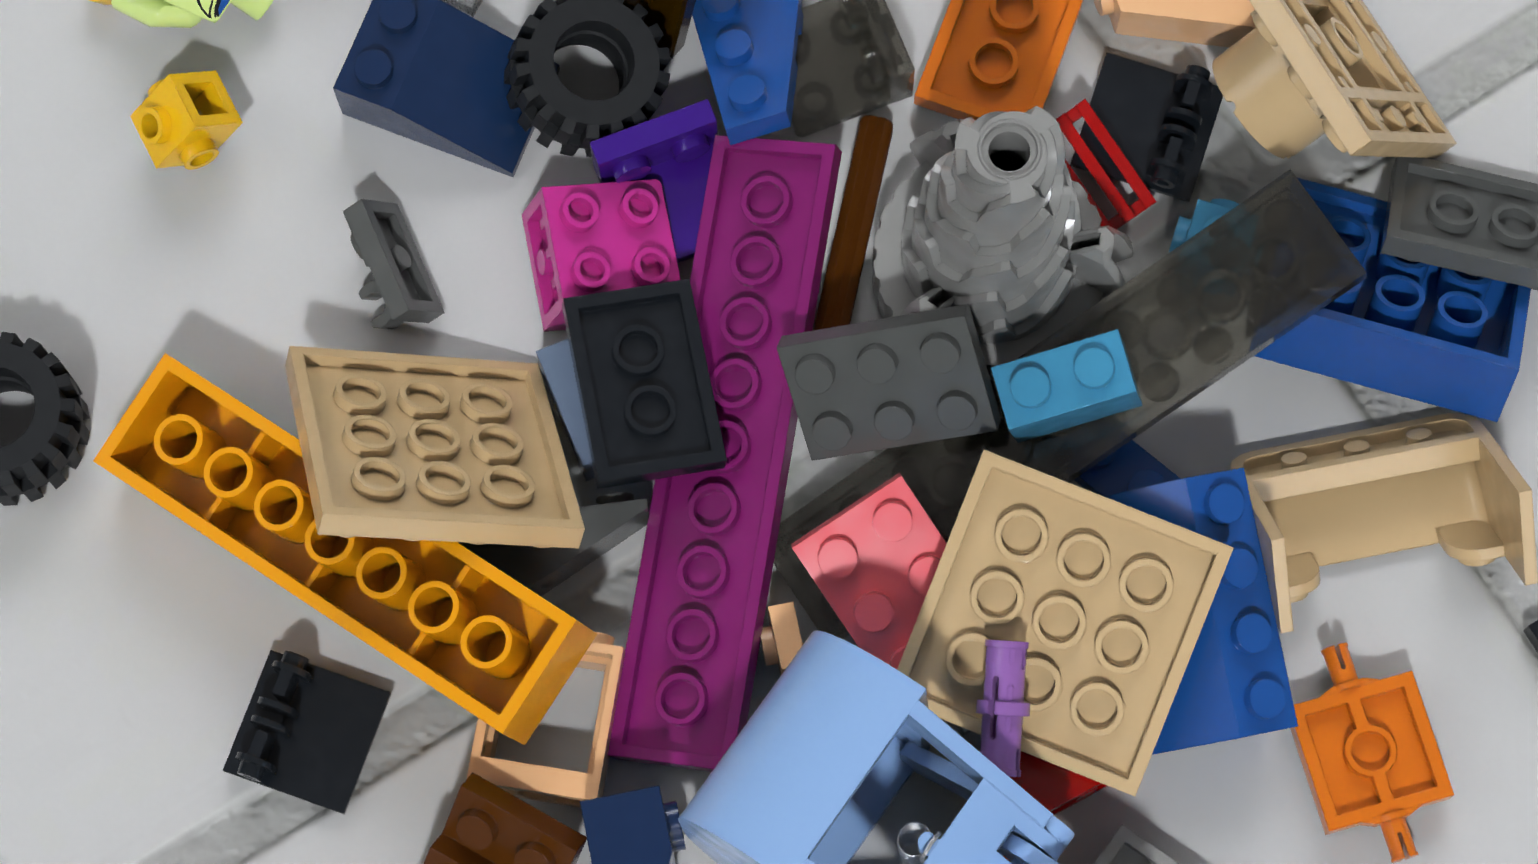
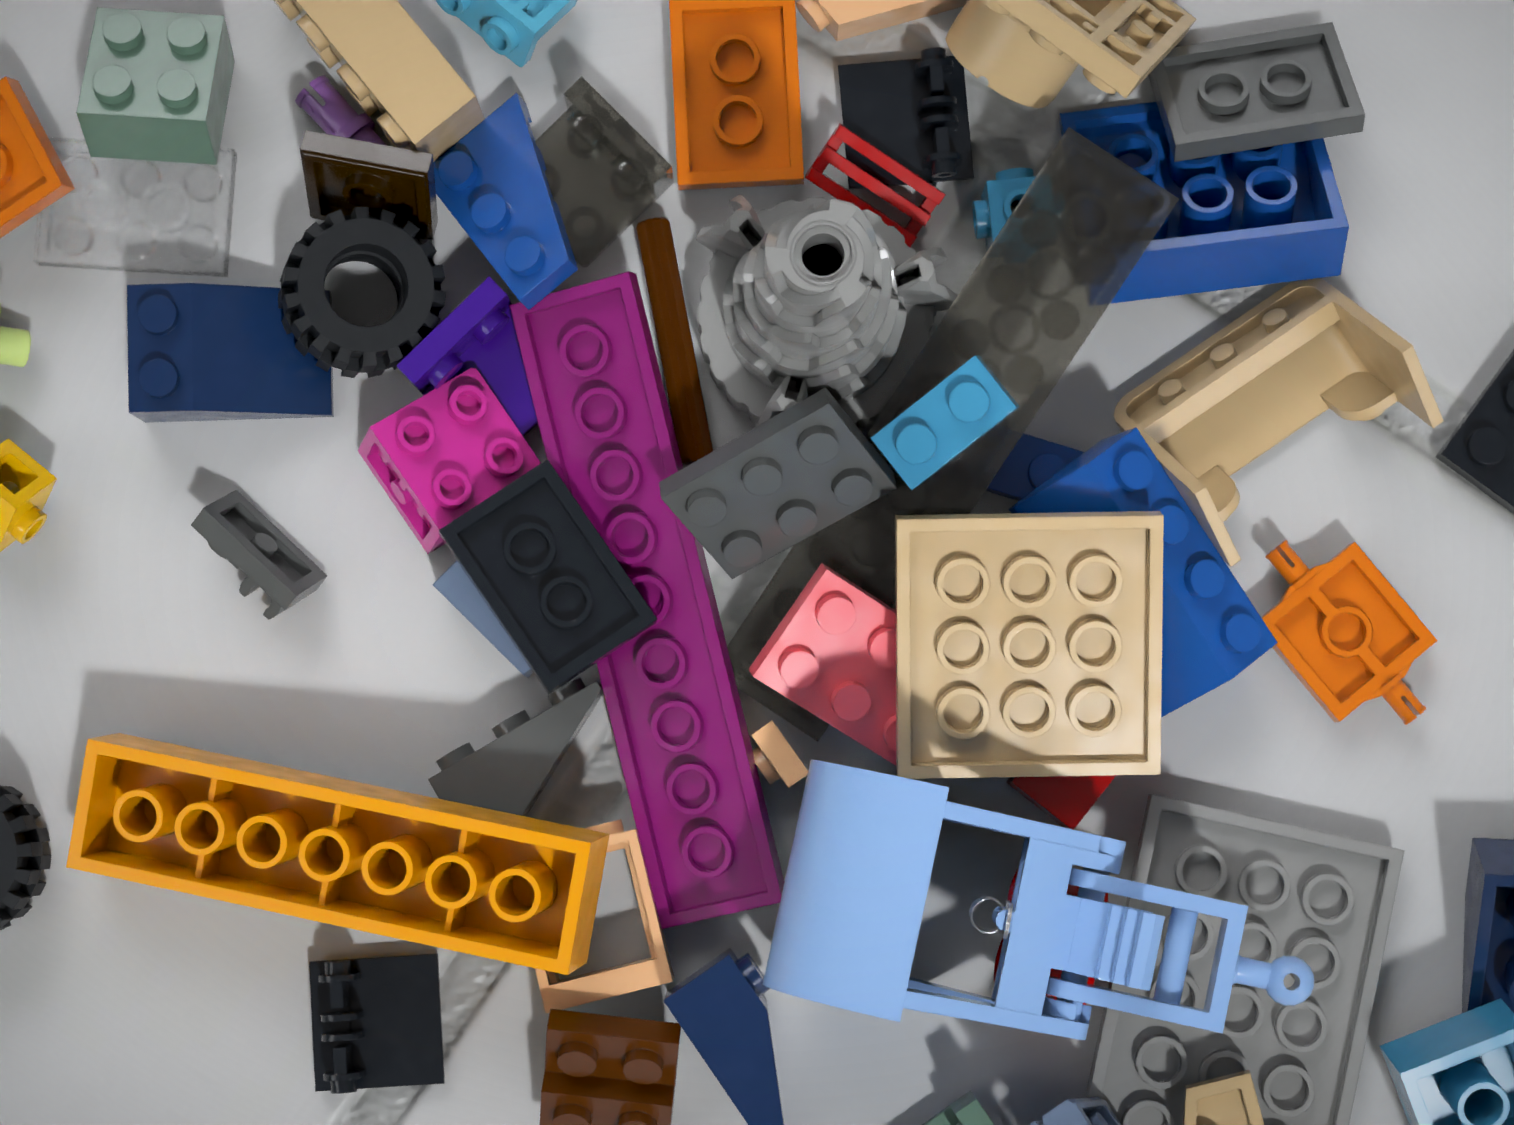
camera: 25 degrees left, 10 degrees up
(431, 449) = (379, 728): tan plate -> none
(1003, 704) = (1011, 749): medium lavender pin -> none

